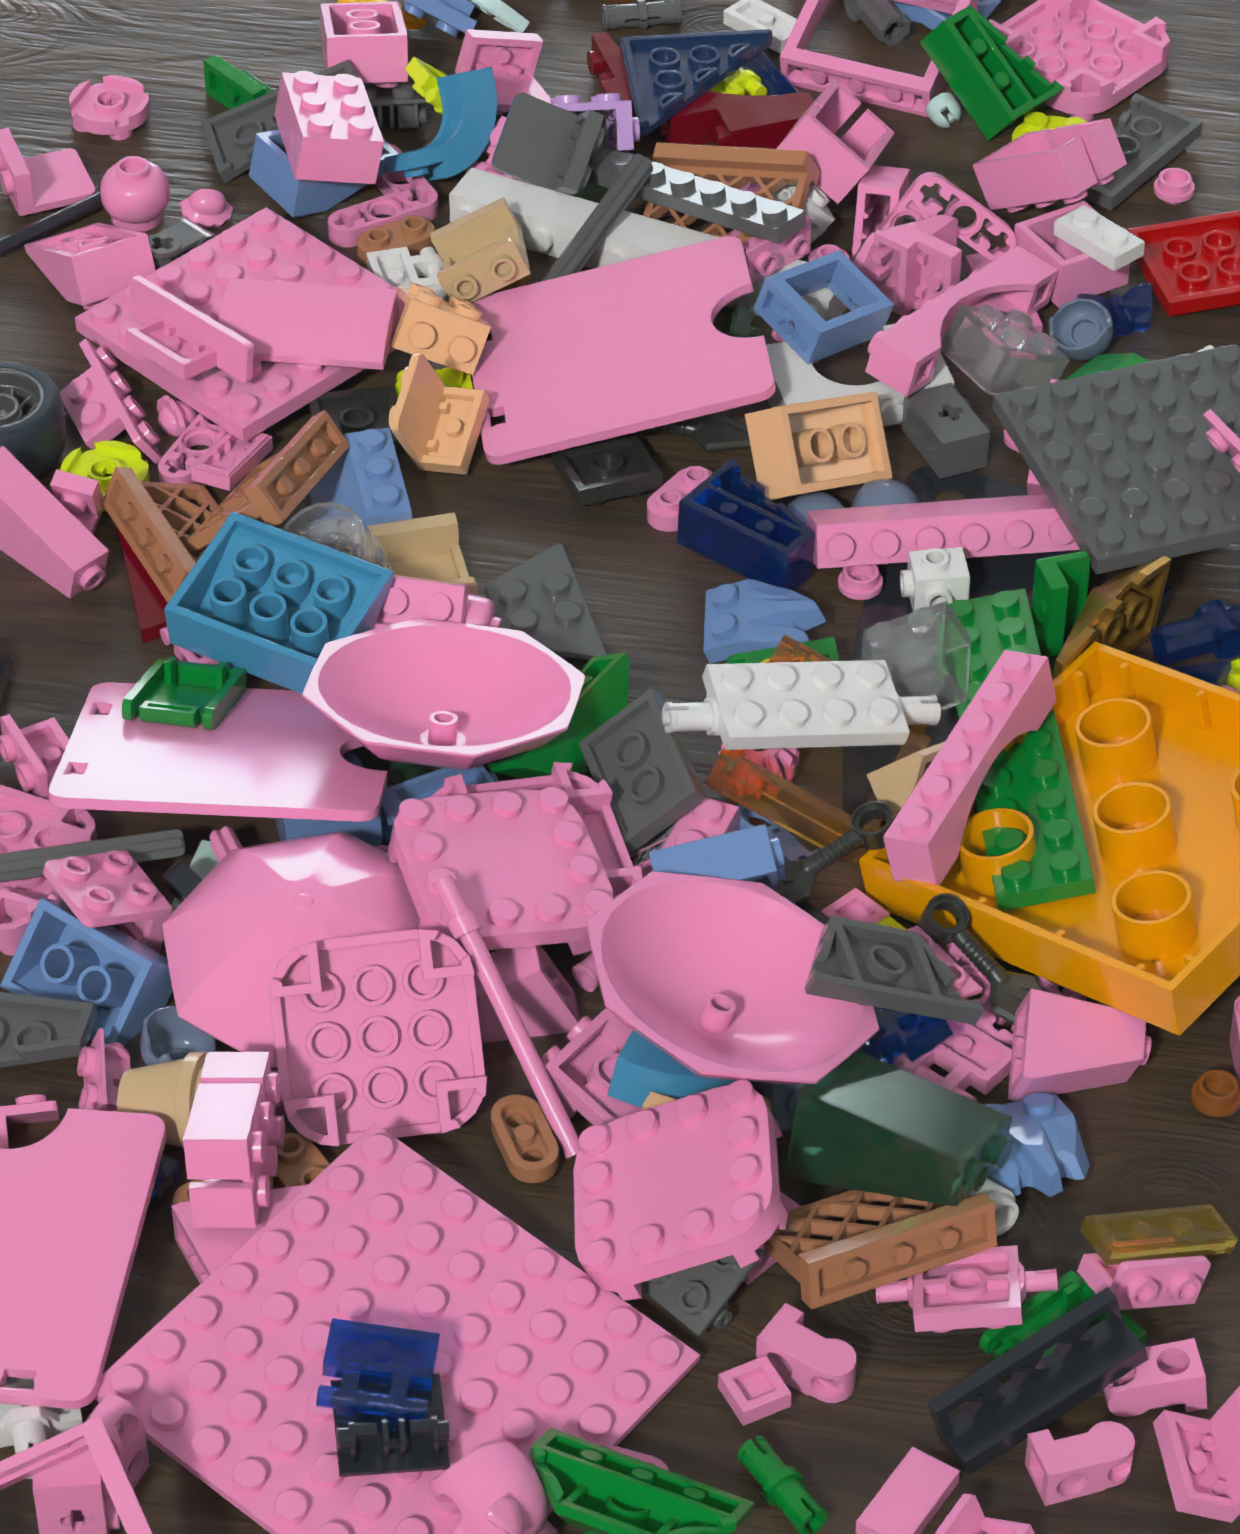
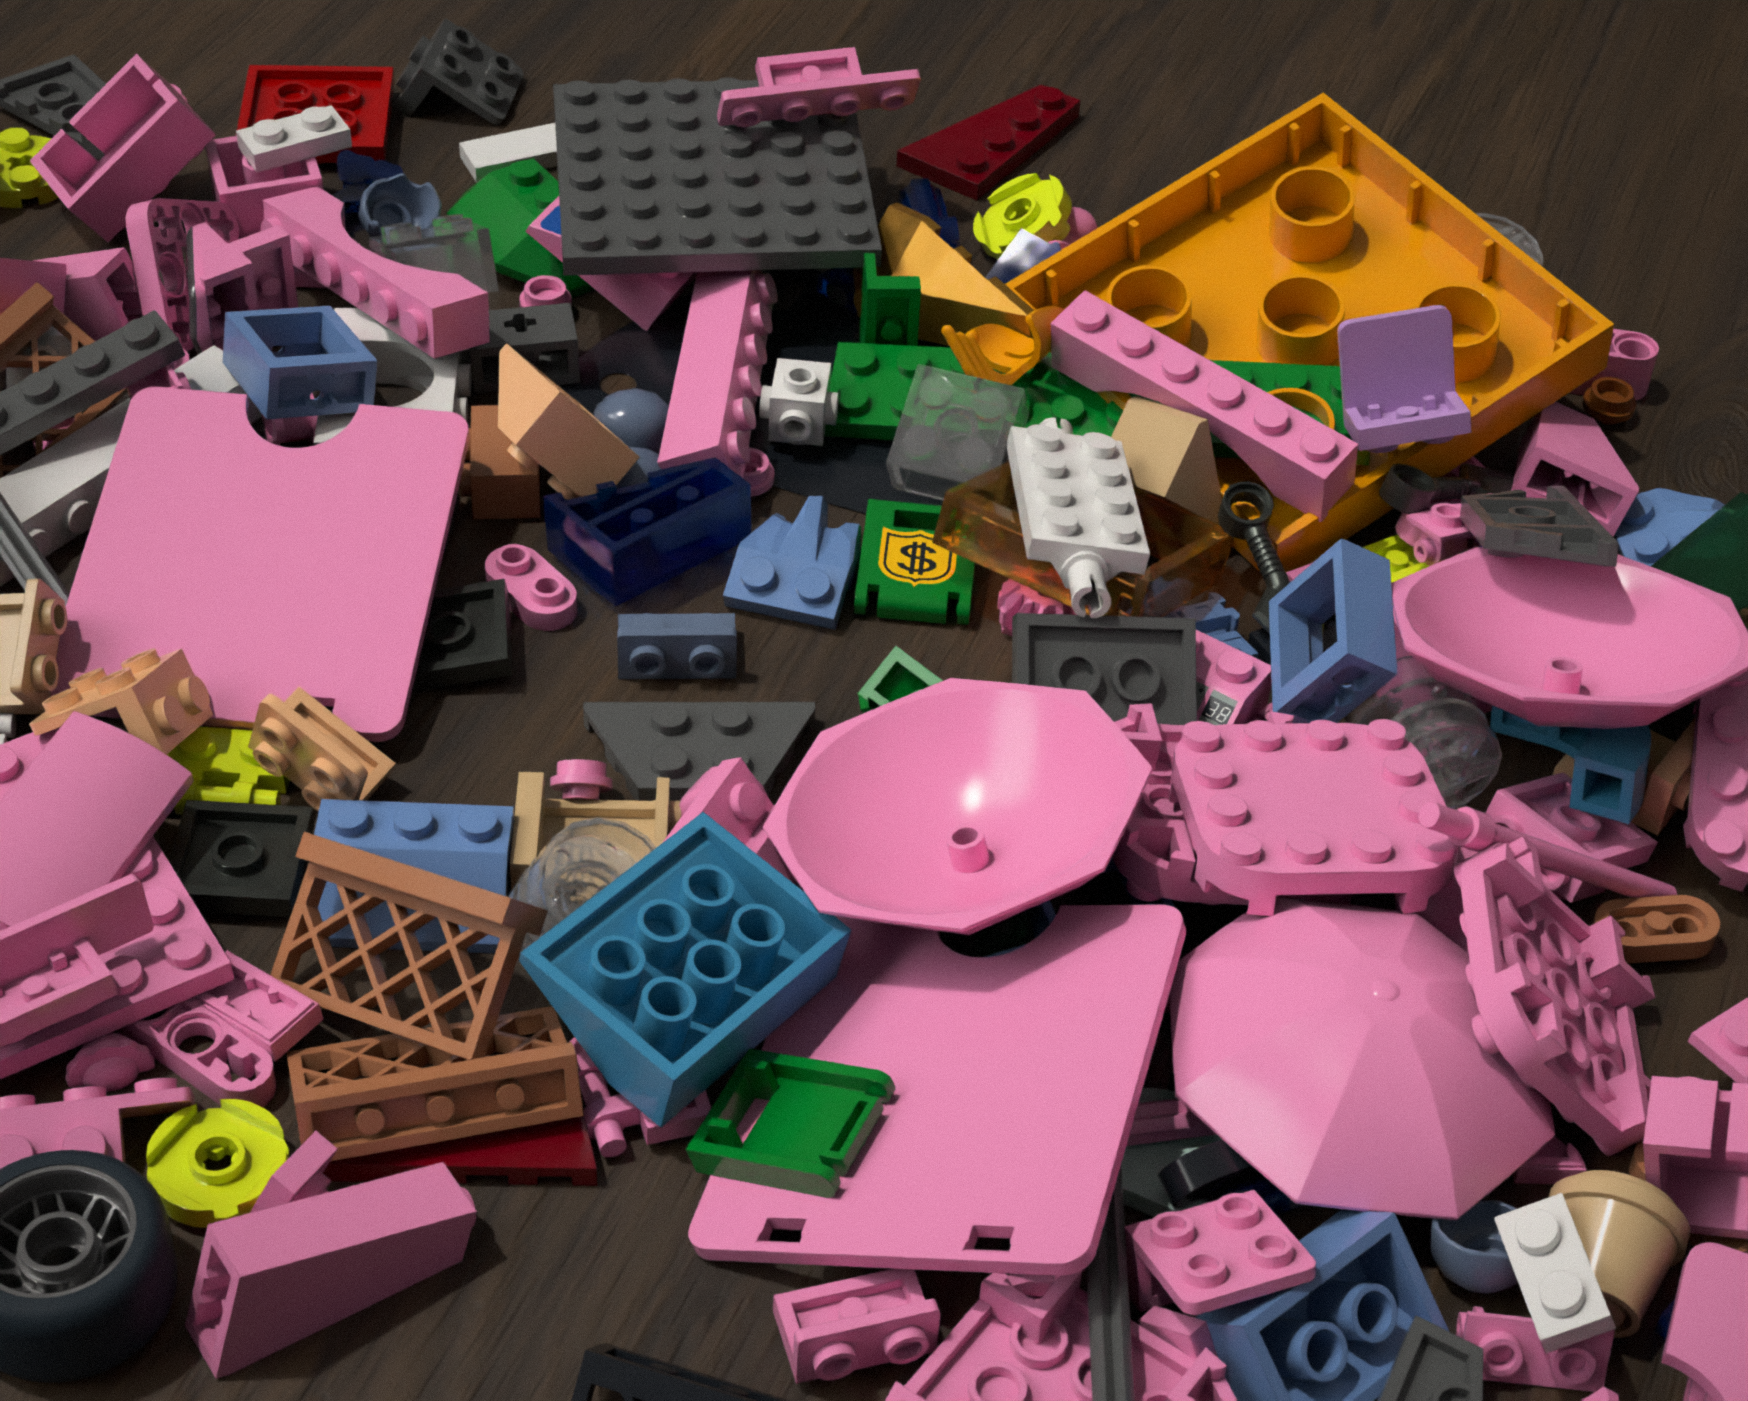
camera: 80 degrees left, 0 degrees up
(111, 1057) = (1554, 1273): none -> white plate
(478, 555) = (581, 779): none -> bright pink plate
(645, 579) = (676, 646): none -> sand blue bracket
(966, 633) = (1002, 348): none -> light orange helmet
(1018, 872) = (1400, 379): none -> lavender bracket

